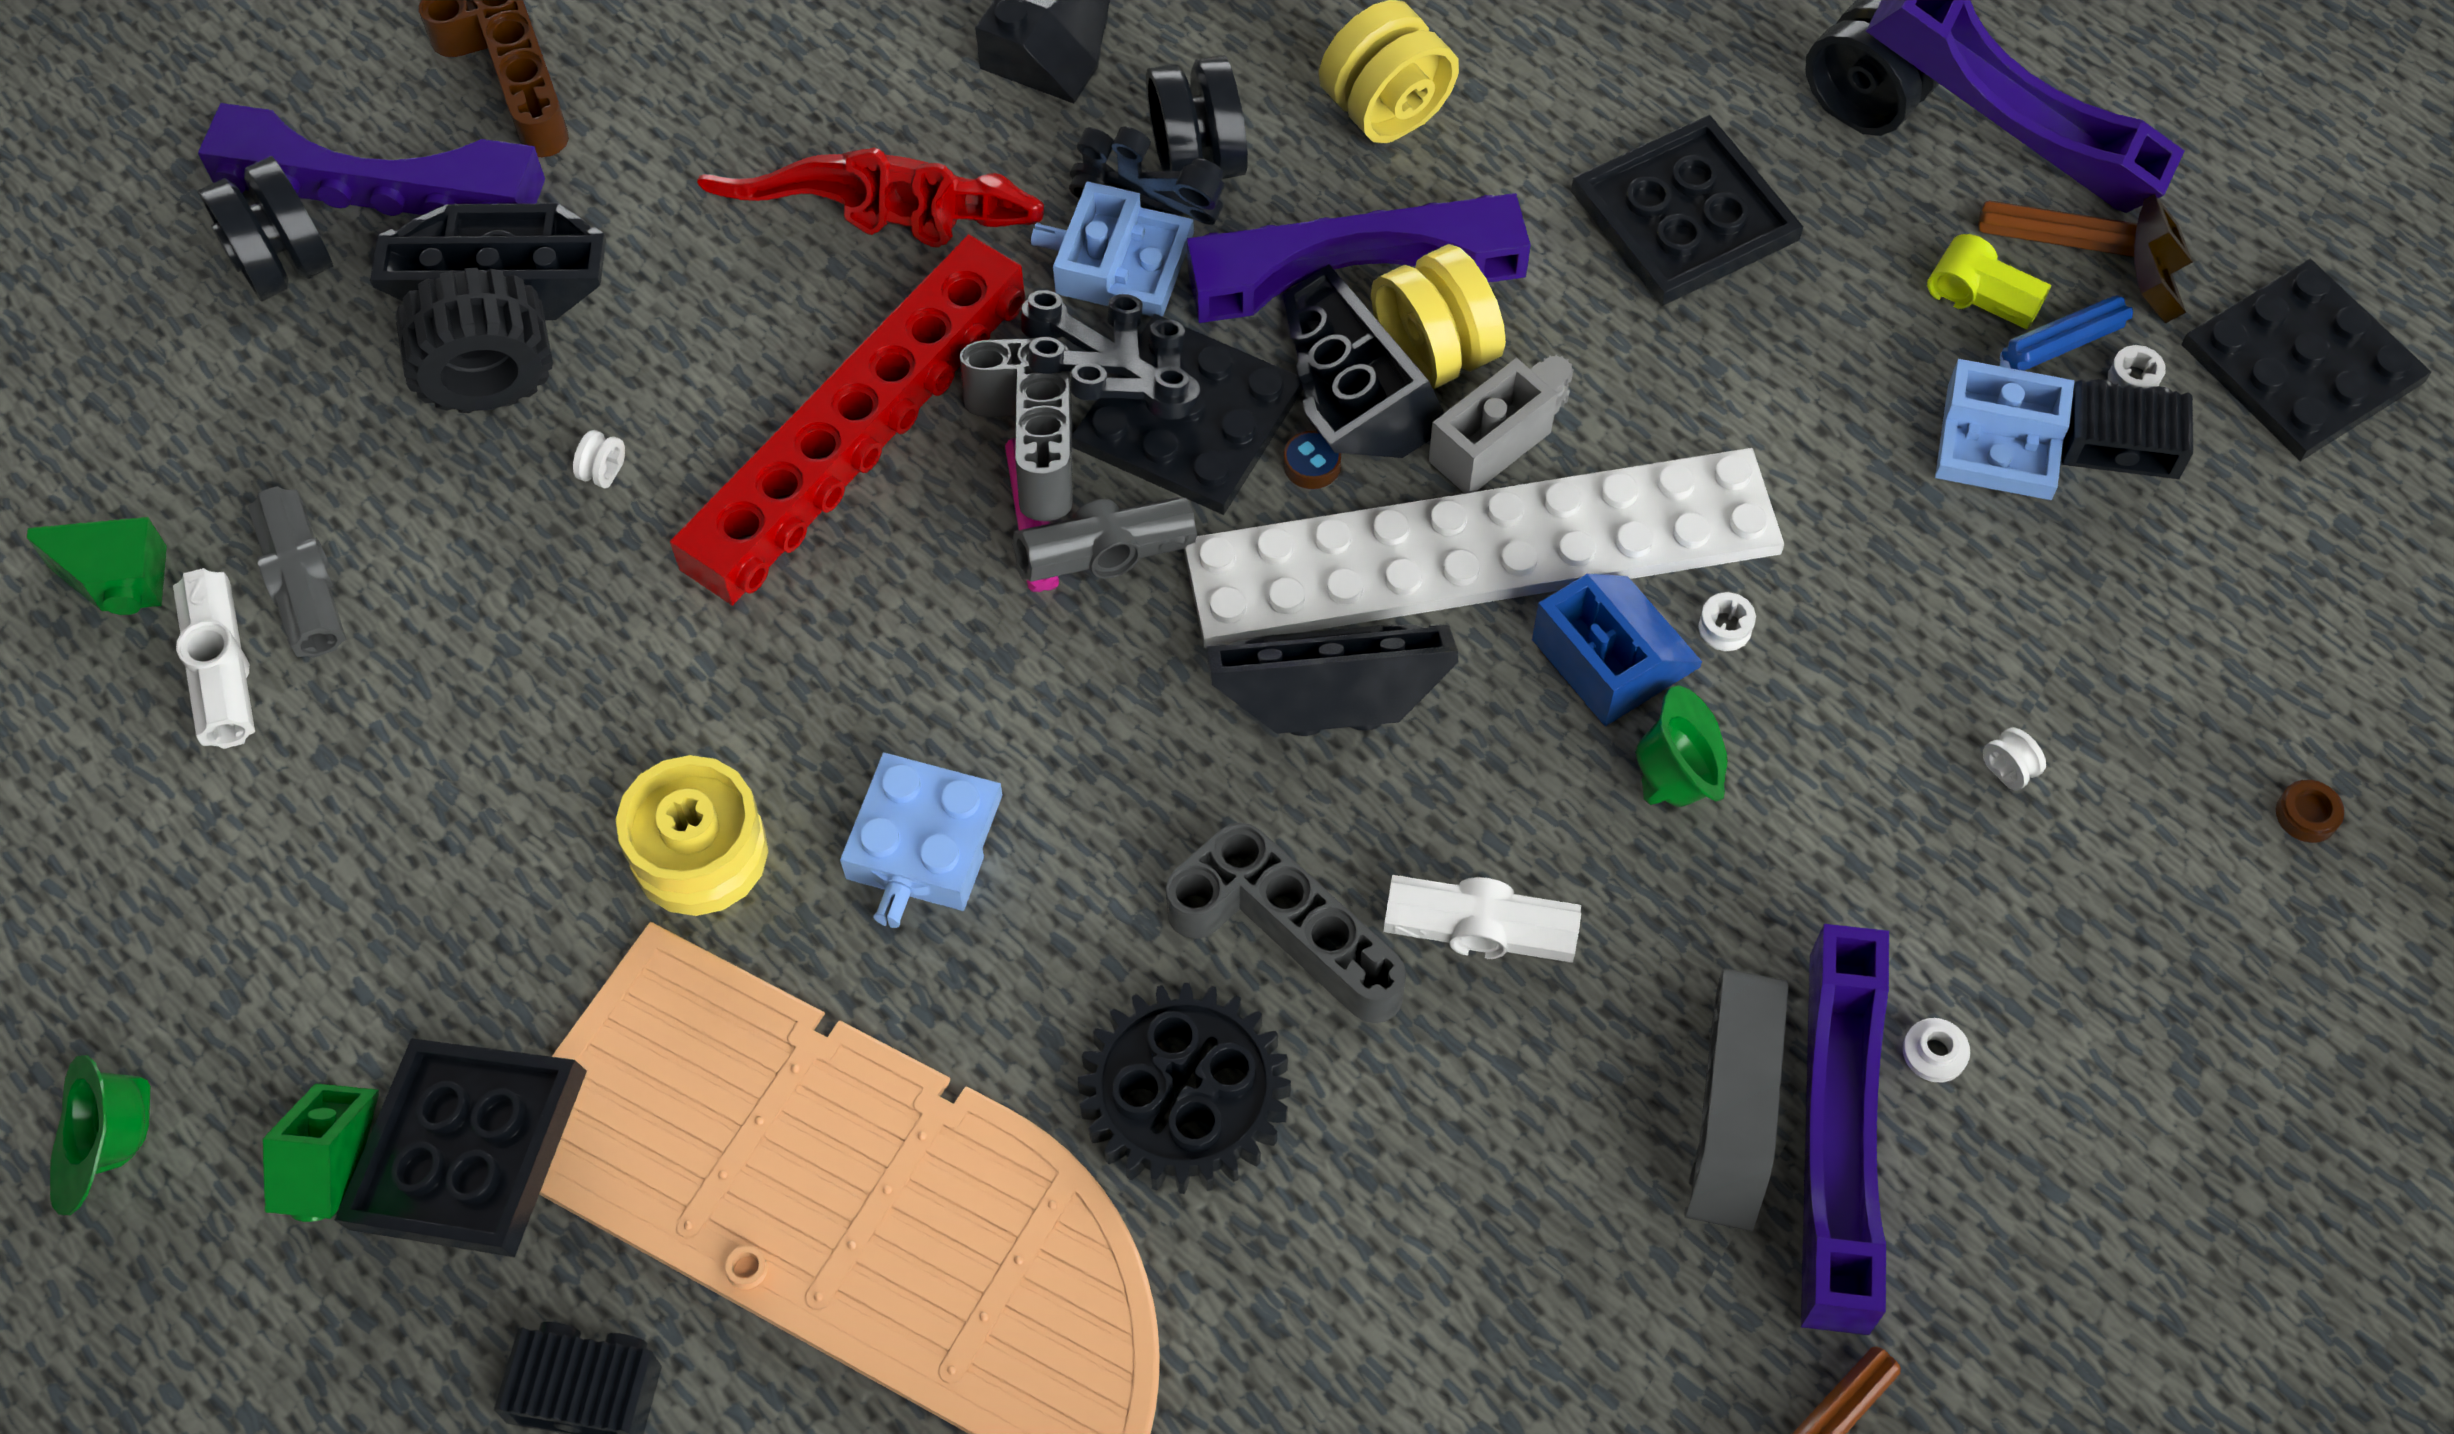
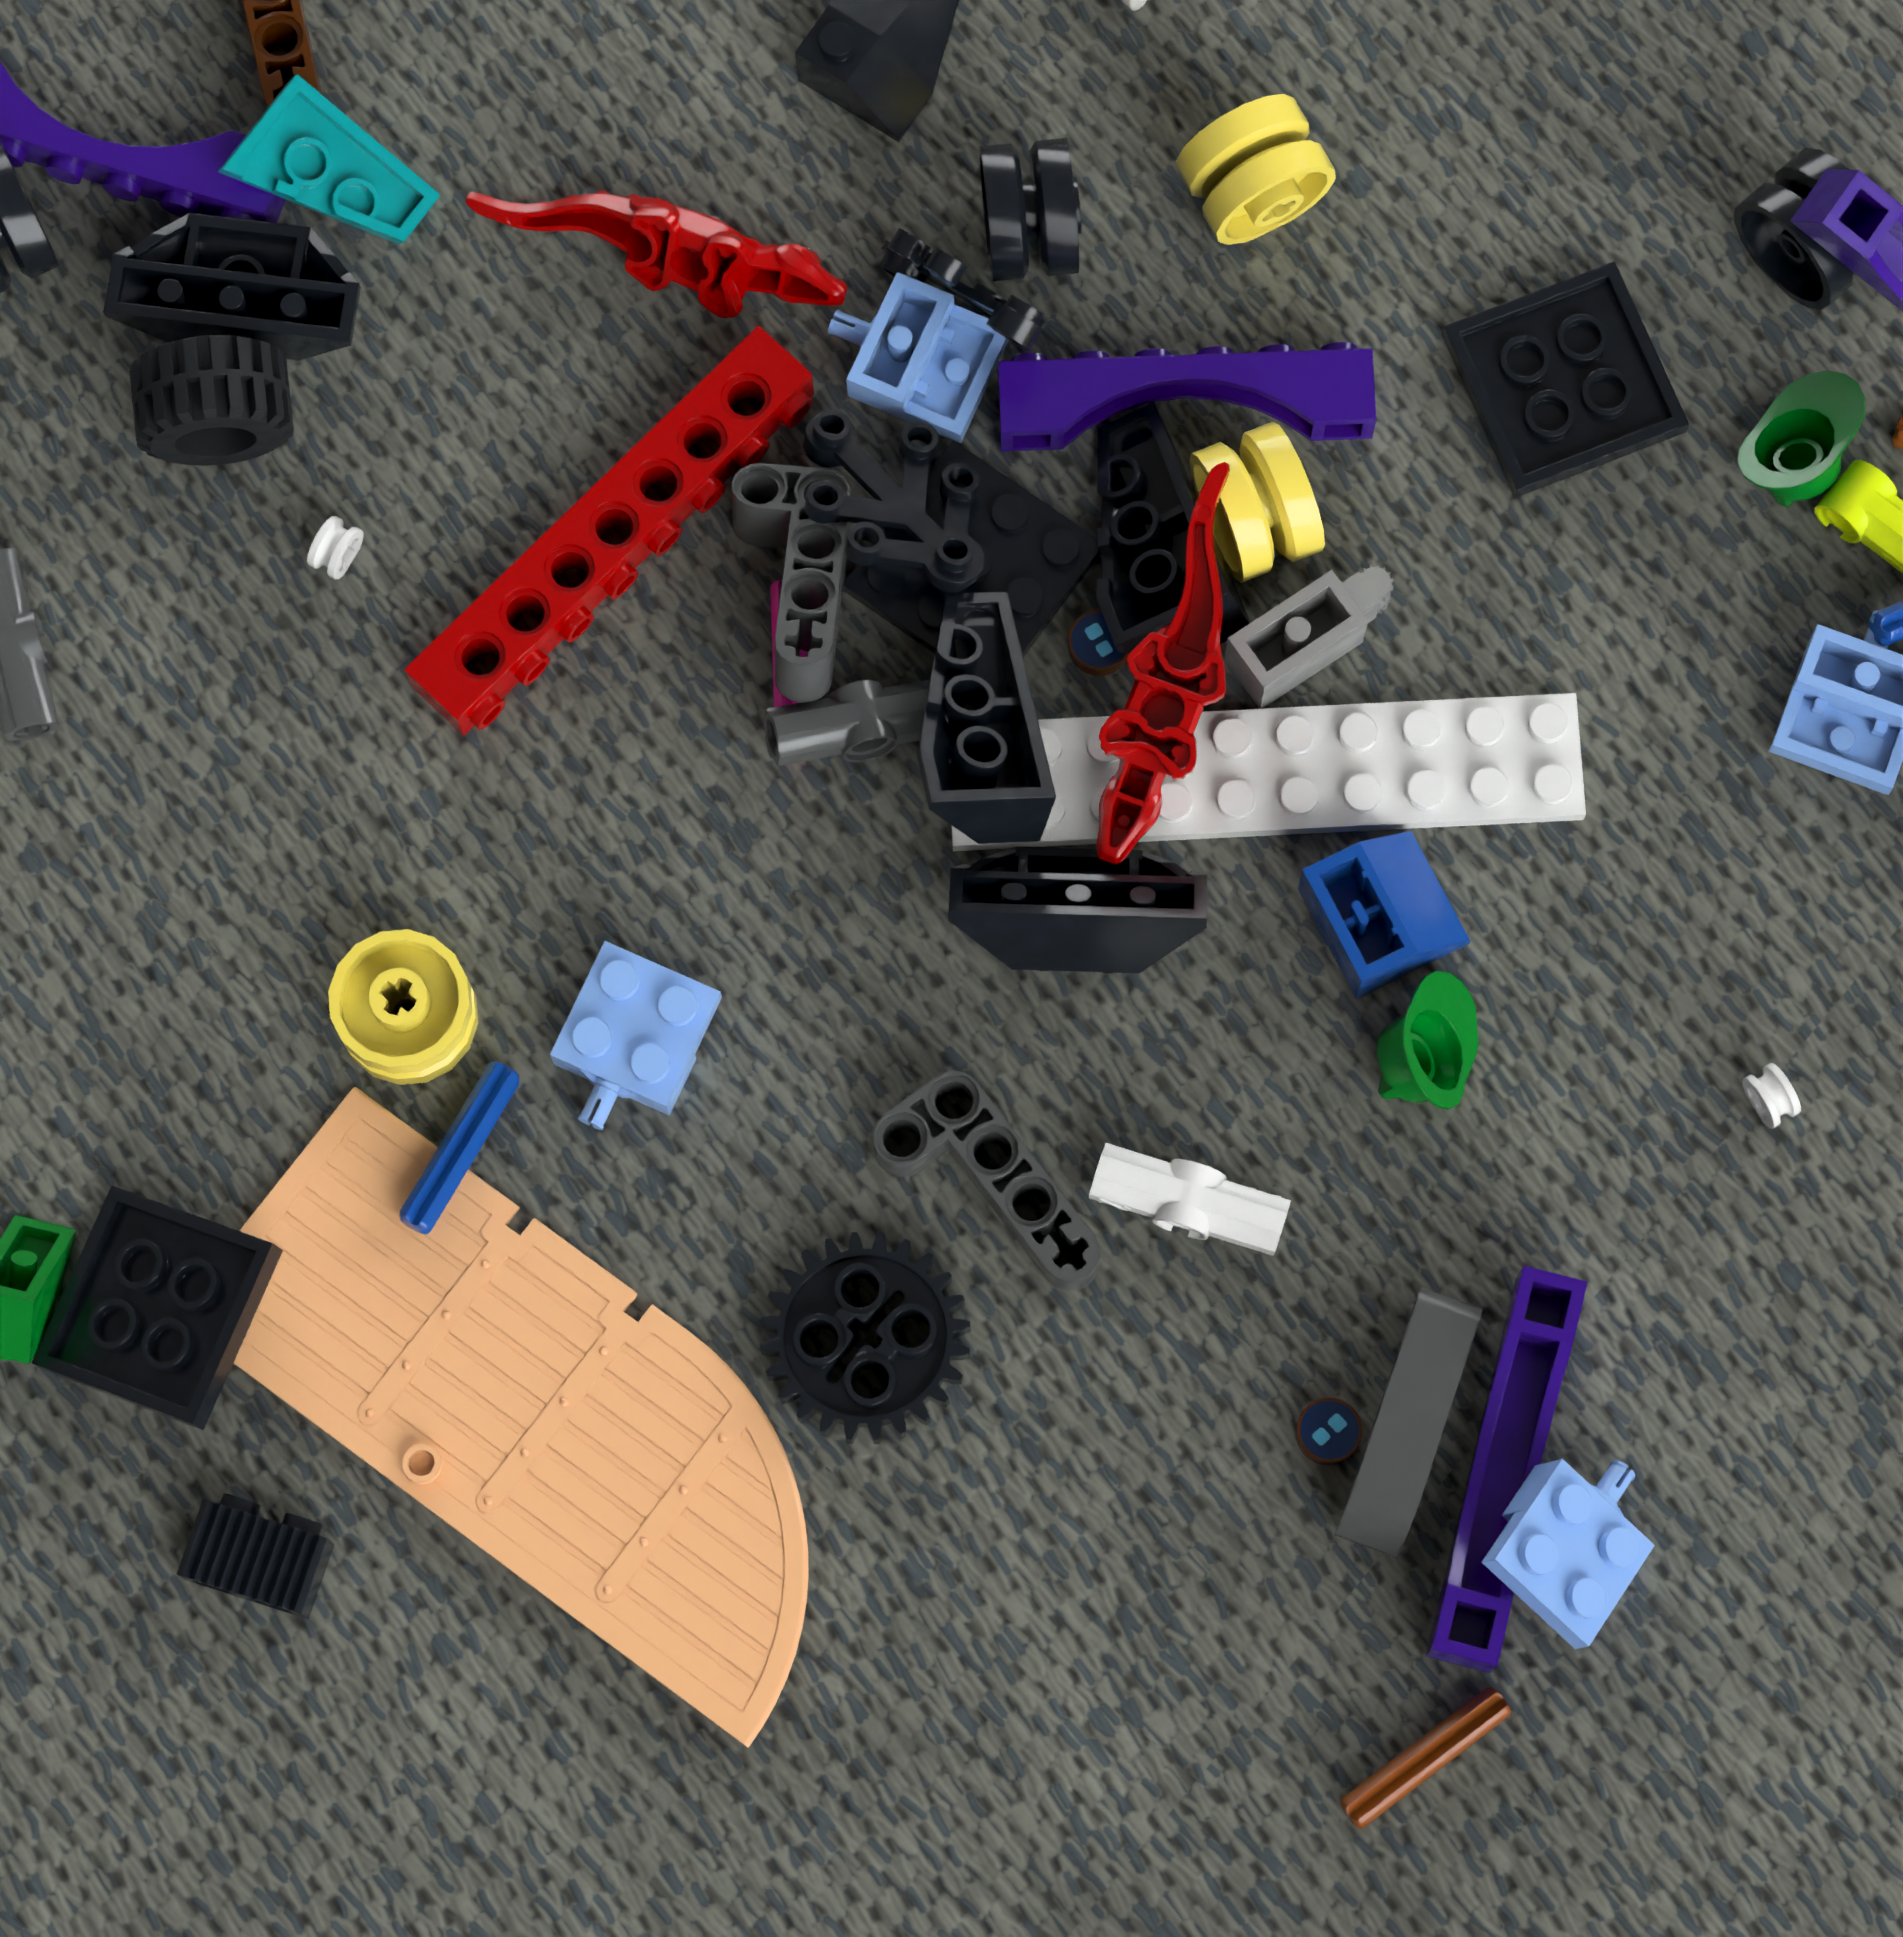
camera: 10 degrees right, 15 degrees up
(571, 155) = (329, 165): none -> teal wing
(758, 961) = (459, 1147): none -> blue axle
(1223, 525) = (981, 729): none -> black wedge
(1390, 454) = (1174, 680): none -> red animal
(1658, 1119) = (1328, 1431): none -> dark blue tile
(1735, 606) = (1490, 886): white bush -> none
(1907, 224) = (1803, 436): none -> green piece
(1928, 1190) = (1569, 1548): none -> light blue plate
(1933, 1066) = (1607, 1414): white plate -> none

